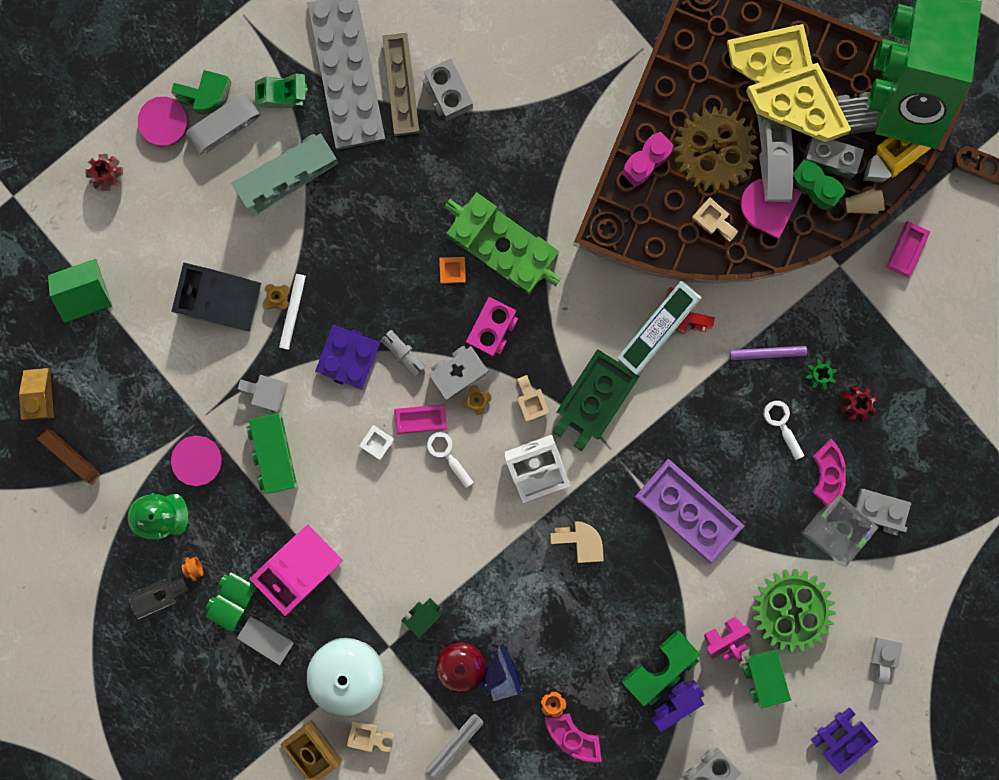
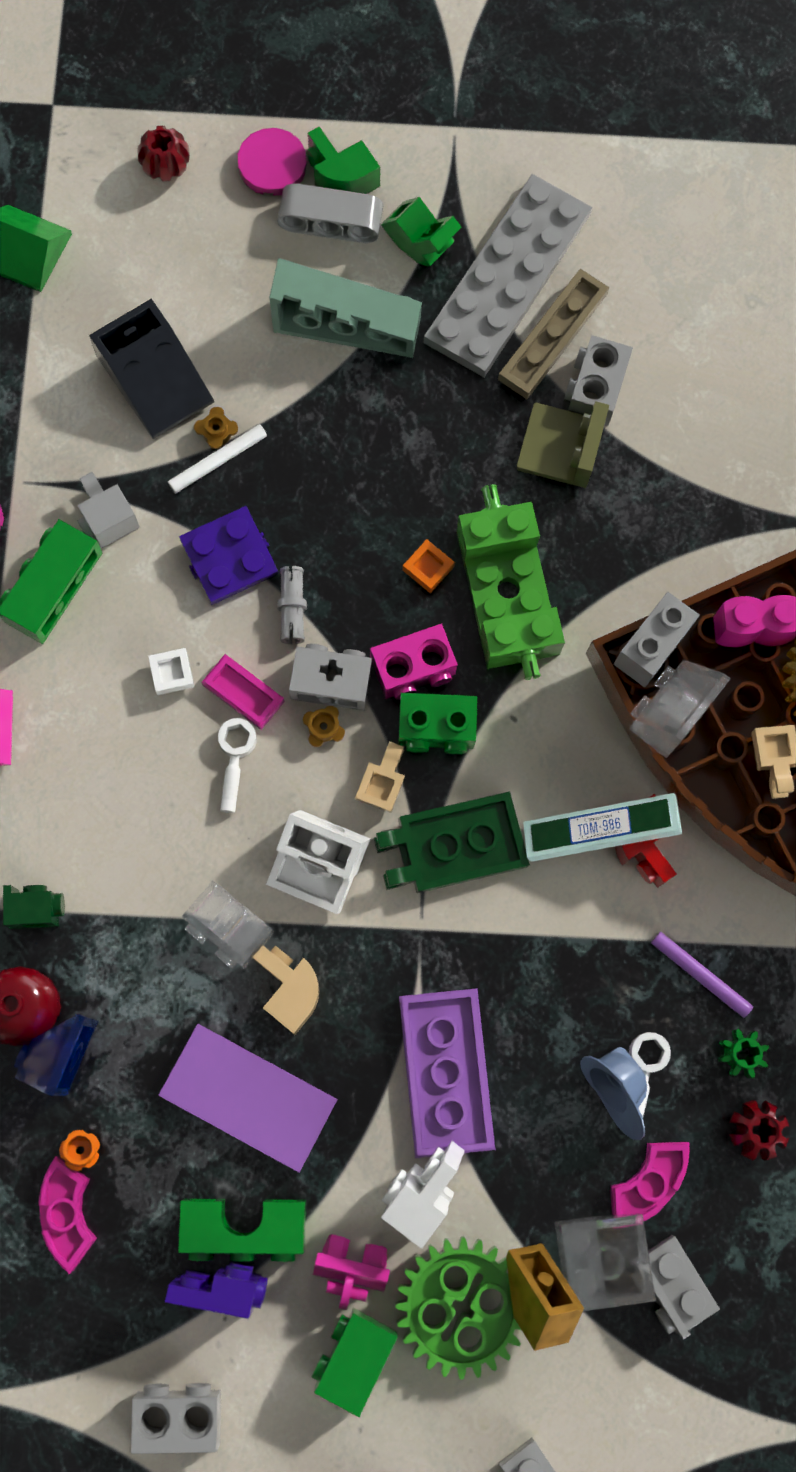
camera: 35 degrees right, 10 degrees down
(460, 142) = (562, 443): none -> olive bracket
(523, 539) = (227, 925): none -> clear brick
(531, 347) = (437, 722): none -> green brick
(606, 215) = (656, 639): none -> light grey brick
(608, 608) = (248, 1097): none -> medium lavender tile
(645, 240) = (677, 705): none -> clear slope
(730, 579) = (421, 1197): none -> white brick
(777, 442) = (620, 1087): none -> sand blue piece
(825, 573) = (541, 1297): none -> pearl gold slope

